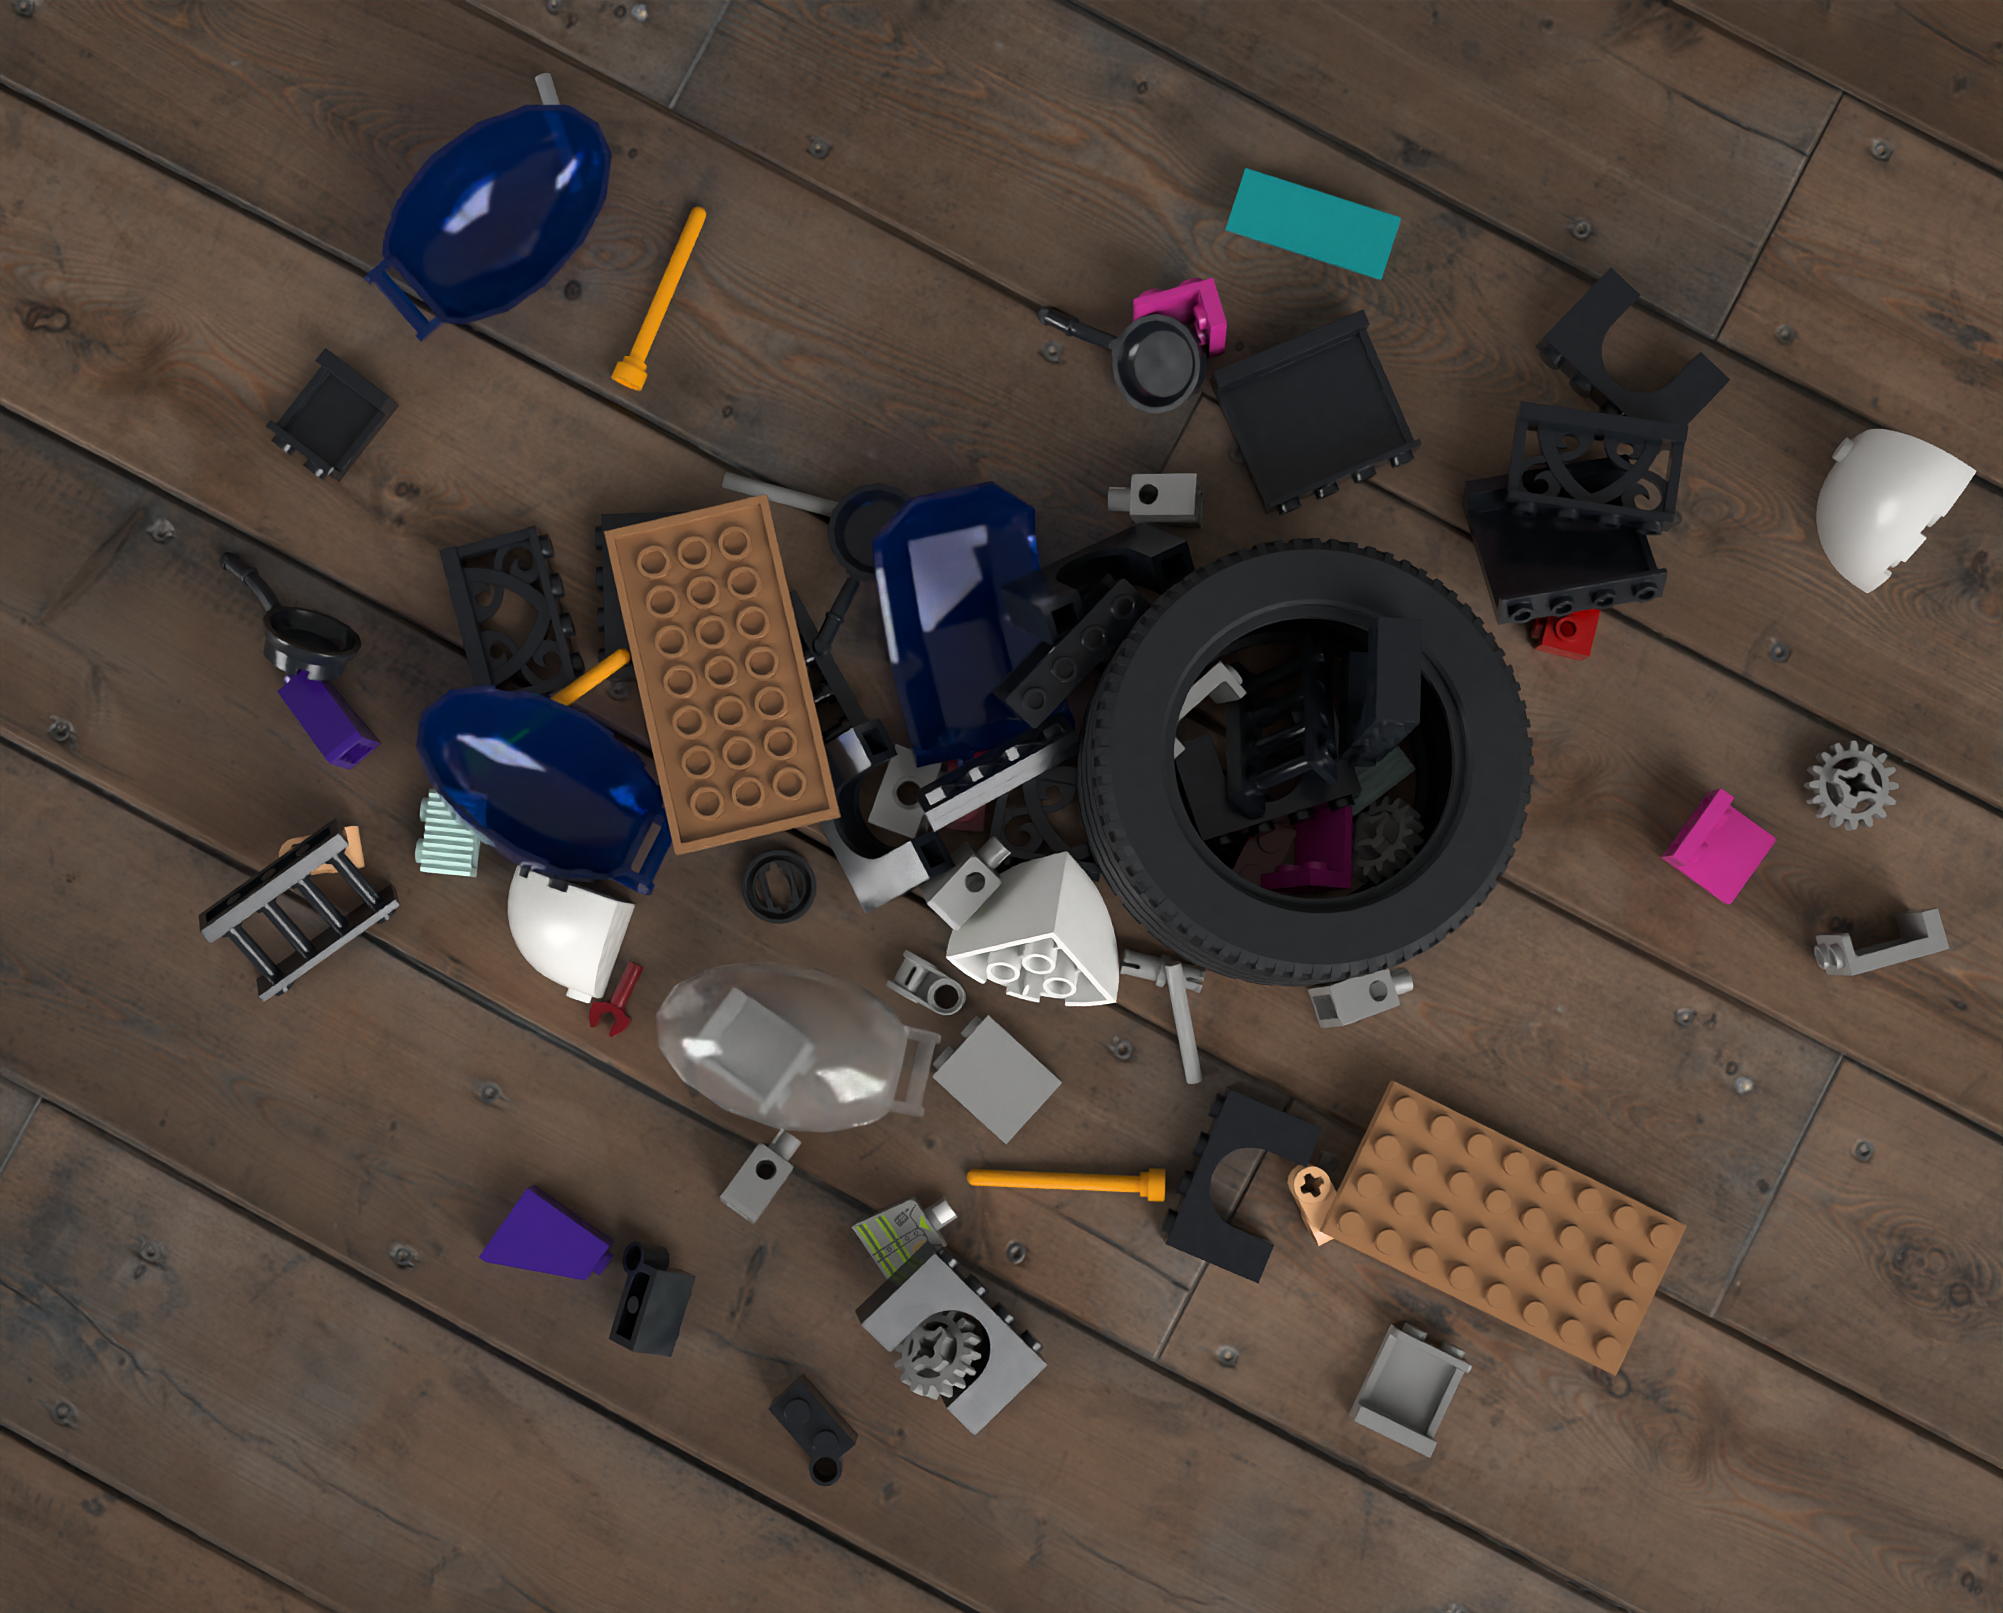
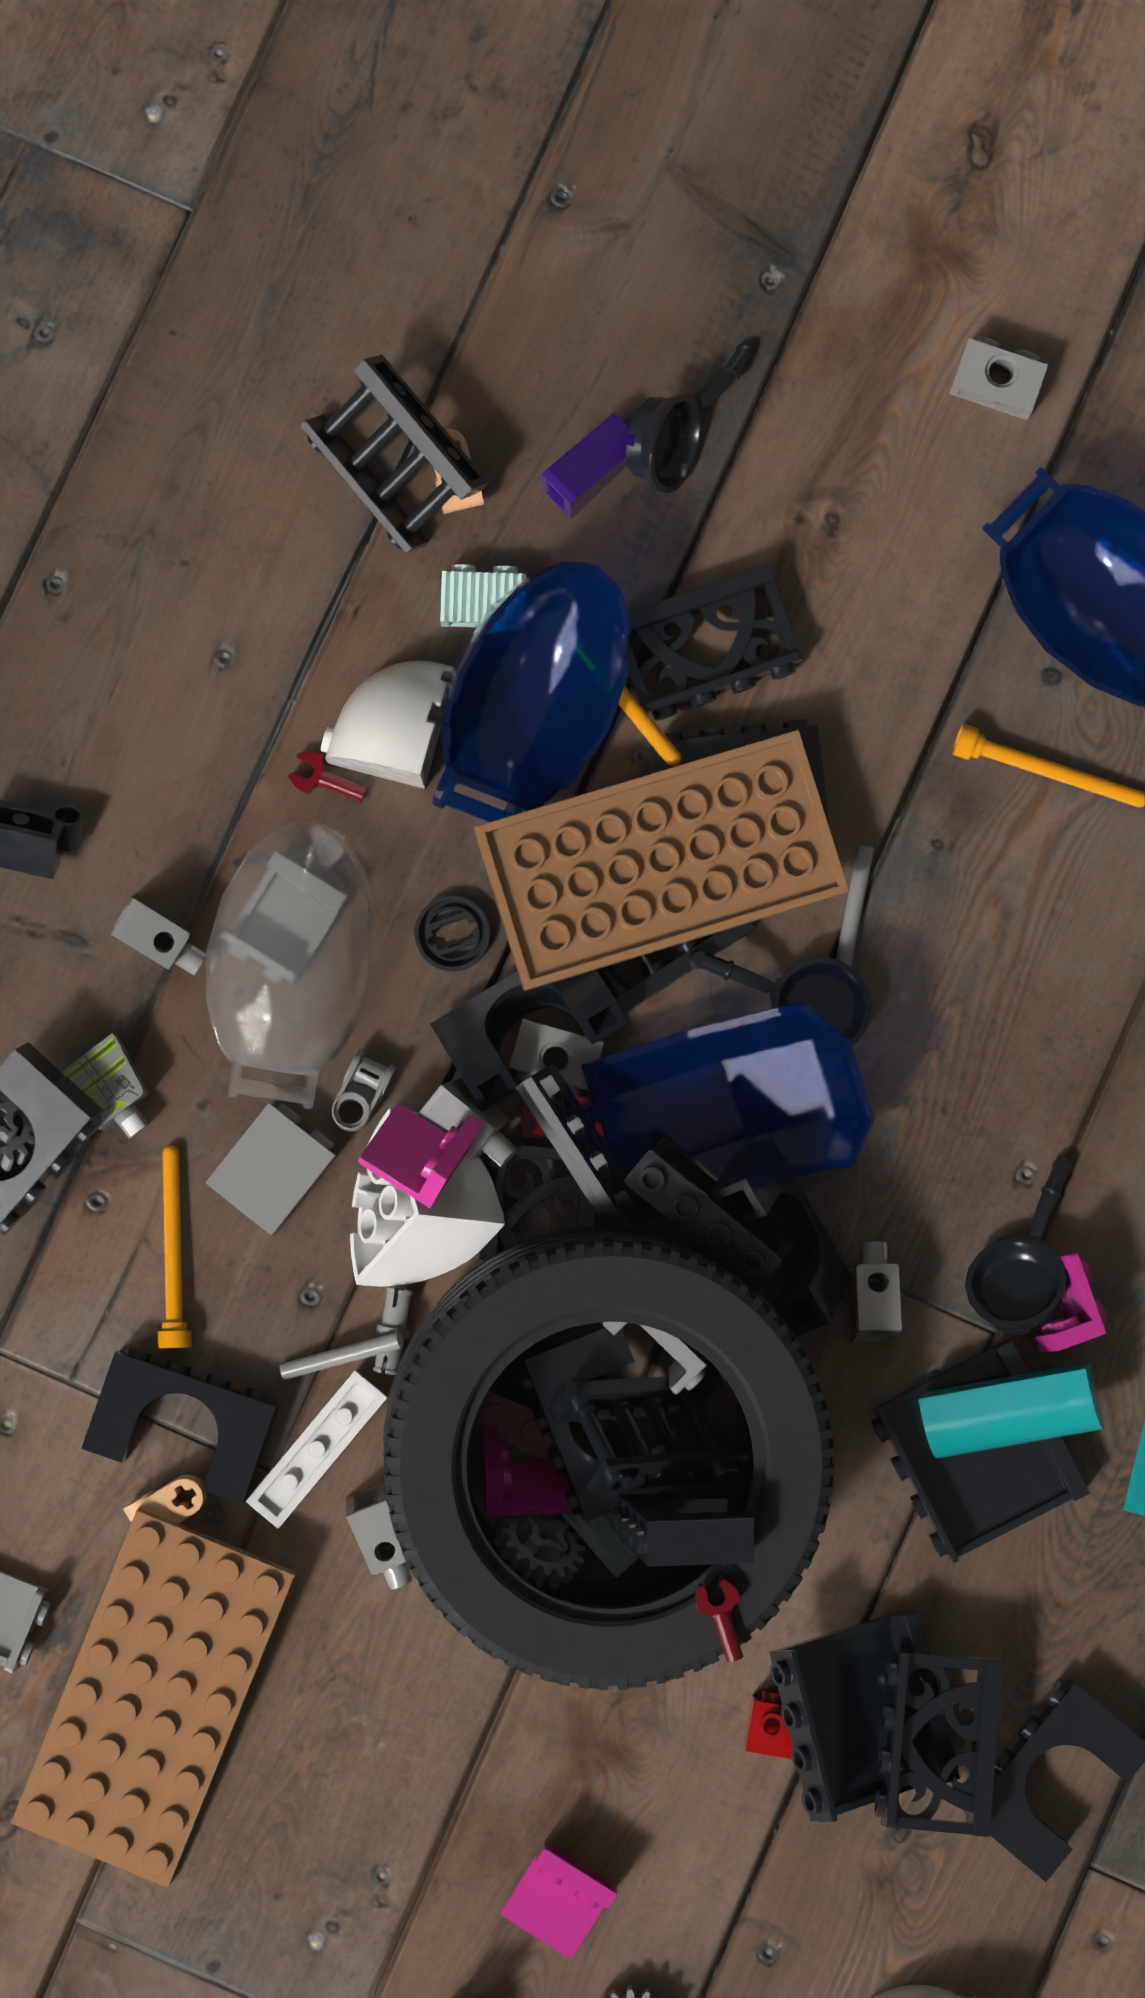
camera: 85 degrees right, 0 degrees up
(280, 339) = (975, 385): none -> light grey brick
(333, 418) = (898, 443): black panel -> none
(548, 1239) = (80, 729): dark purple slope -> none
(993, 930) = (417, 1153): none -> dark pink bracket
(1272, 1052) = (316, 1449): none -> white plate
(1279, 376) = (1011, 1410): none -> teal brick
(1469, 657) = (722, 1617): none -> dark red bar

